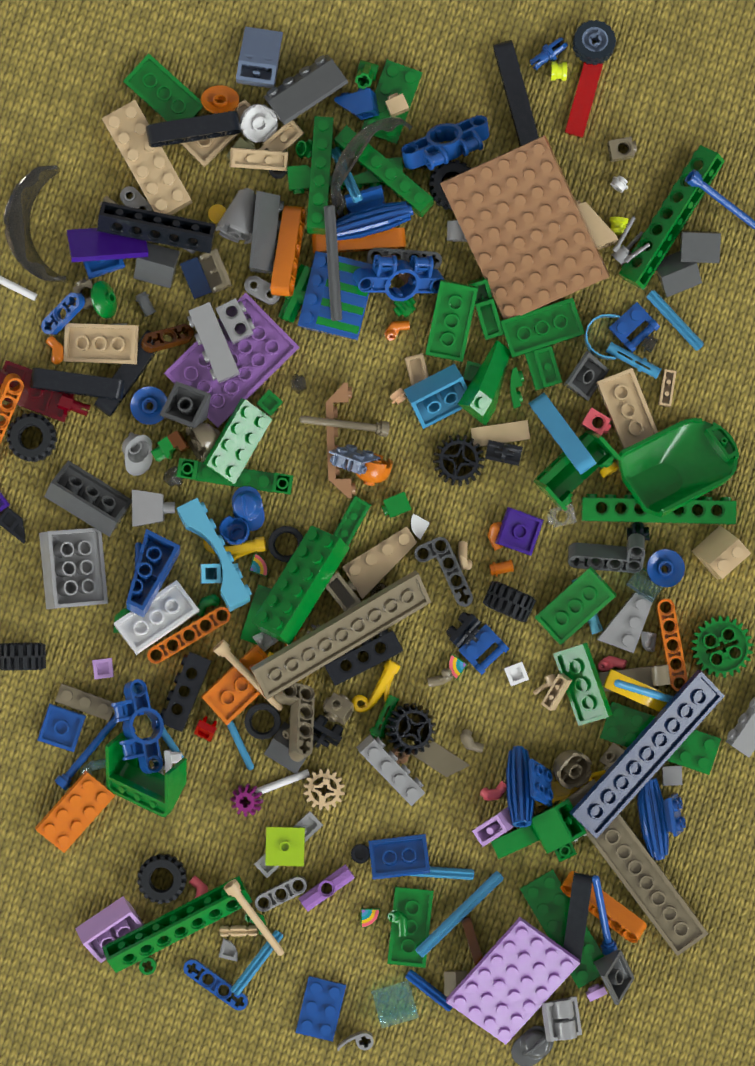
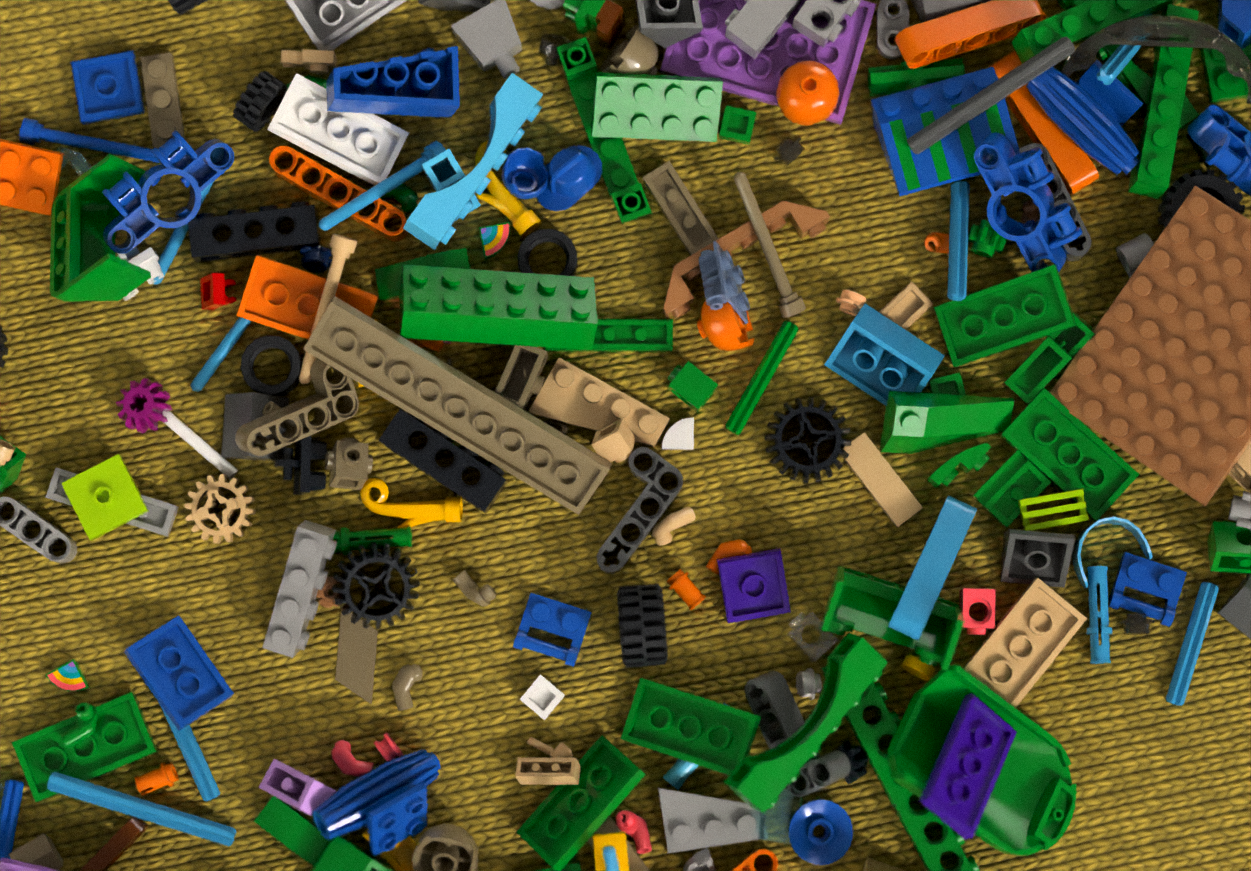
camera: 65 degrees right, 5 degrees down
(103, 668) = (223, 98): lavender plate -> none
(110, 608) = (316, 61): none -> tan plate
(116, 650) = (260, 101): none -> black tyre
(194, 573) = (381, 188): none -> dark azure piece
(217, 666) = (315, 258): none -> dark blue plate
(264, 641) = (388, 304): white tile -> none
(274, 356) = (807, 92): none -> orange cylinder
(298, 458) = (679, 208): none -> dark tan plate
(316, 895) = (59, 584): medium lavender piece -> none
(360, 853) = (154, 613): black tile -> none
(398, 322) = (958, 241): none -> dark azure axle
(403, 562) = (614, 441): none -> tan plate
(411, 465) = (761, 377): none -> green axle
(447, 898) = (156, 779): none -> orange pin
(457, 666) = (506, 603): tile -> none
(466, 631) = (564, 588): black hips -> none
(498, 768) = (388, 748): none -> coral bush
(503, 453) = (855, 498): black hips -> none
(572, 338) = (1080, 505): none -> lime tile
(585, 531) = (808, 683): none -> white plate
(593, 508) = (849, 673): none -> green arch
(667, 388) = (1086, 687): tan piece -> none
(675, 474) = (968, 766): none -> dark purple tile

